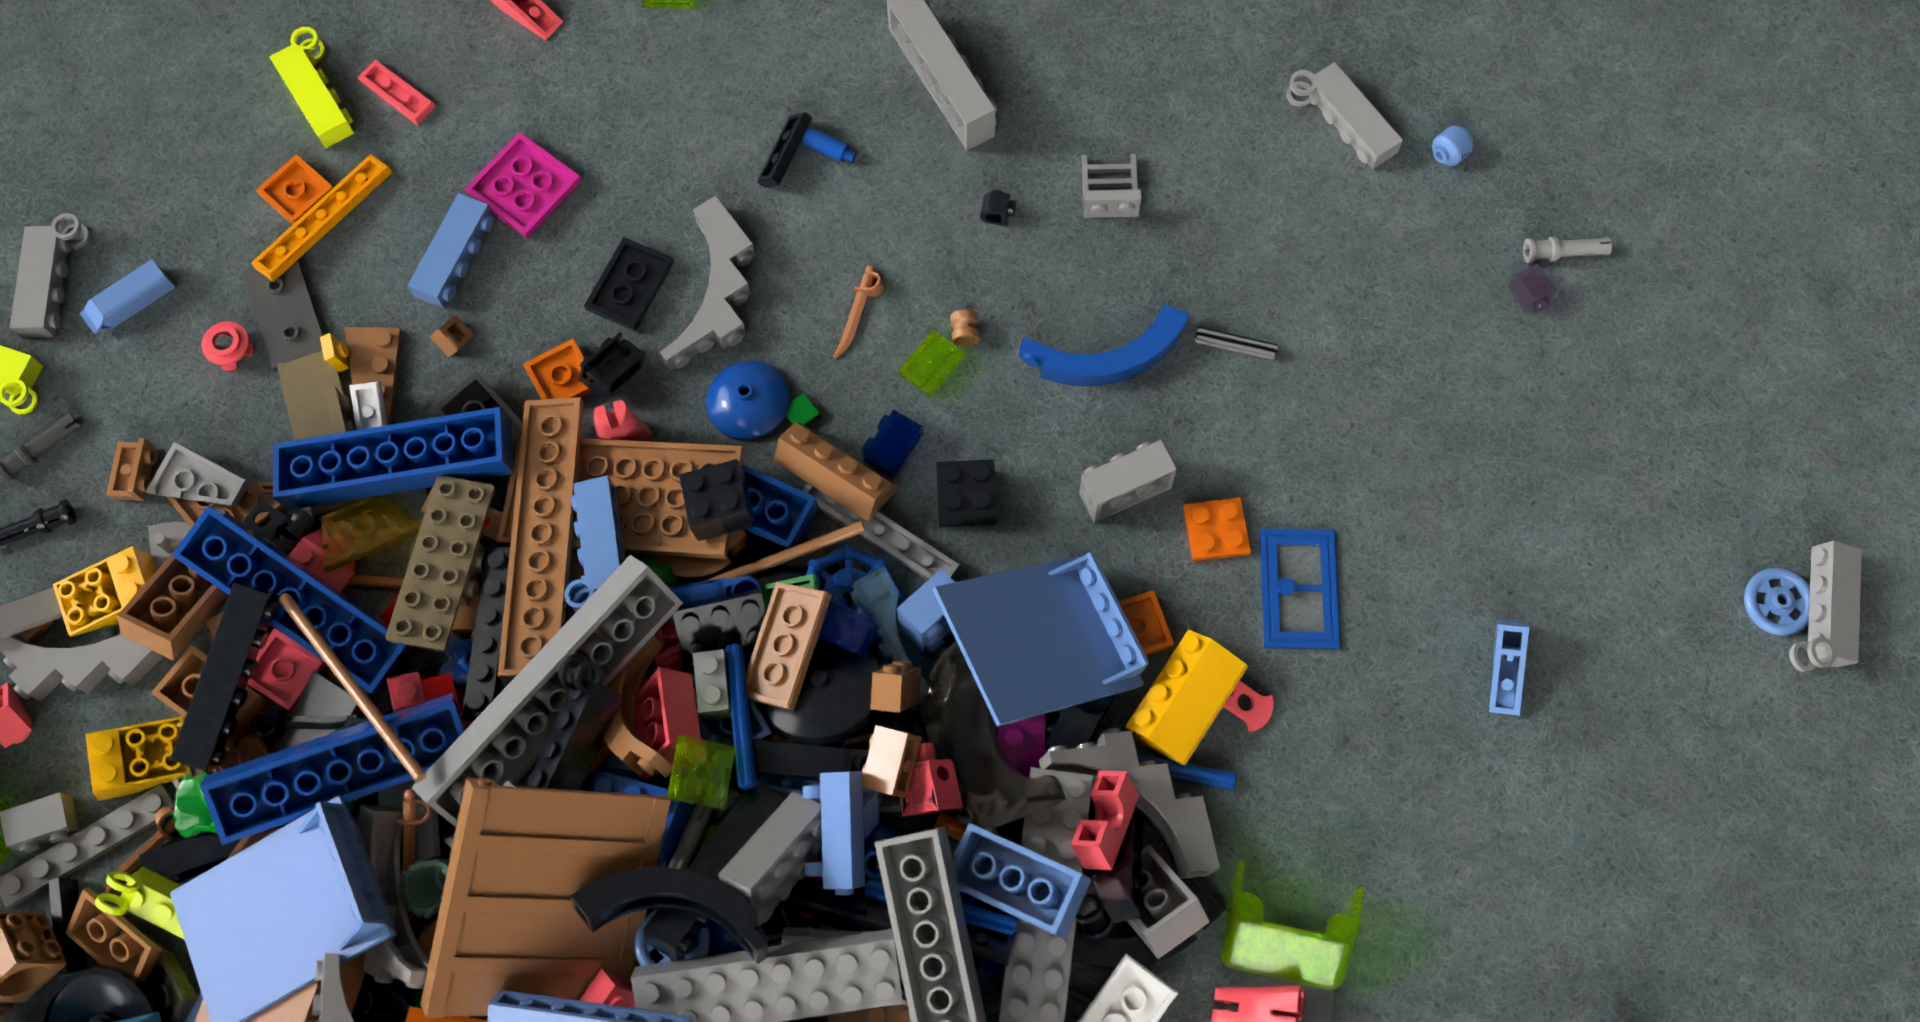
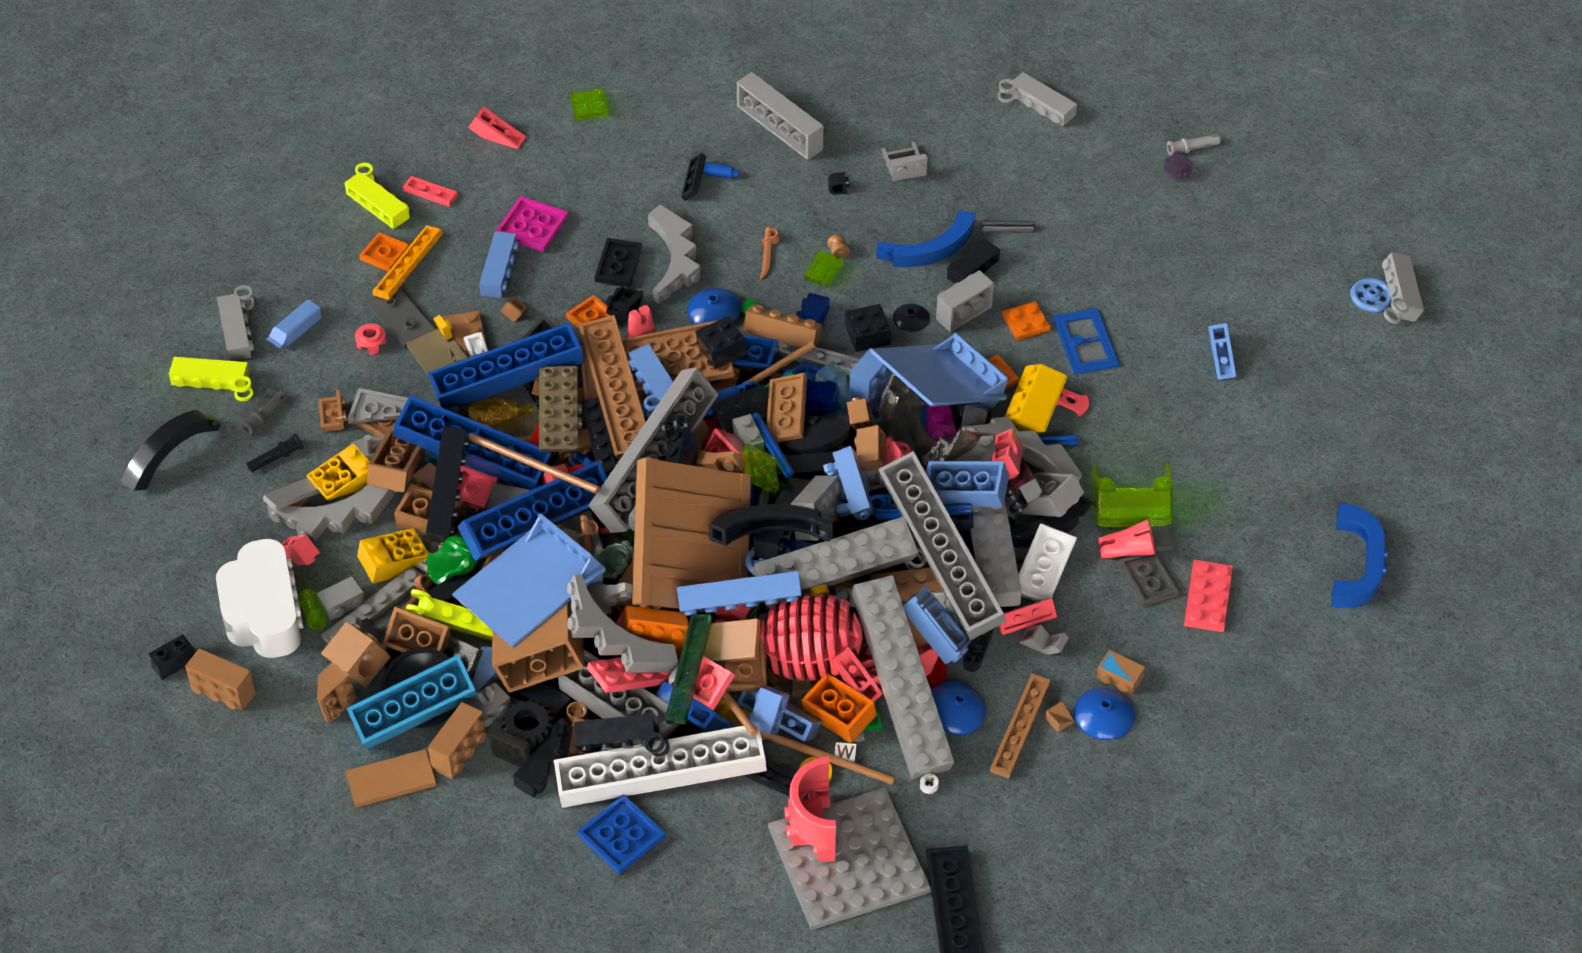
camera: 15 degrees left, 20 degrees down
(1037, 493) = (911, 317): none -> black dish
(1162, 405) = (979, 257): none -> black brick
(1453, 145) = (1108, 104): medium blue head -> none

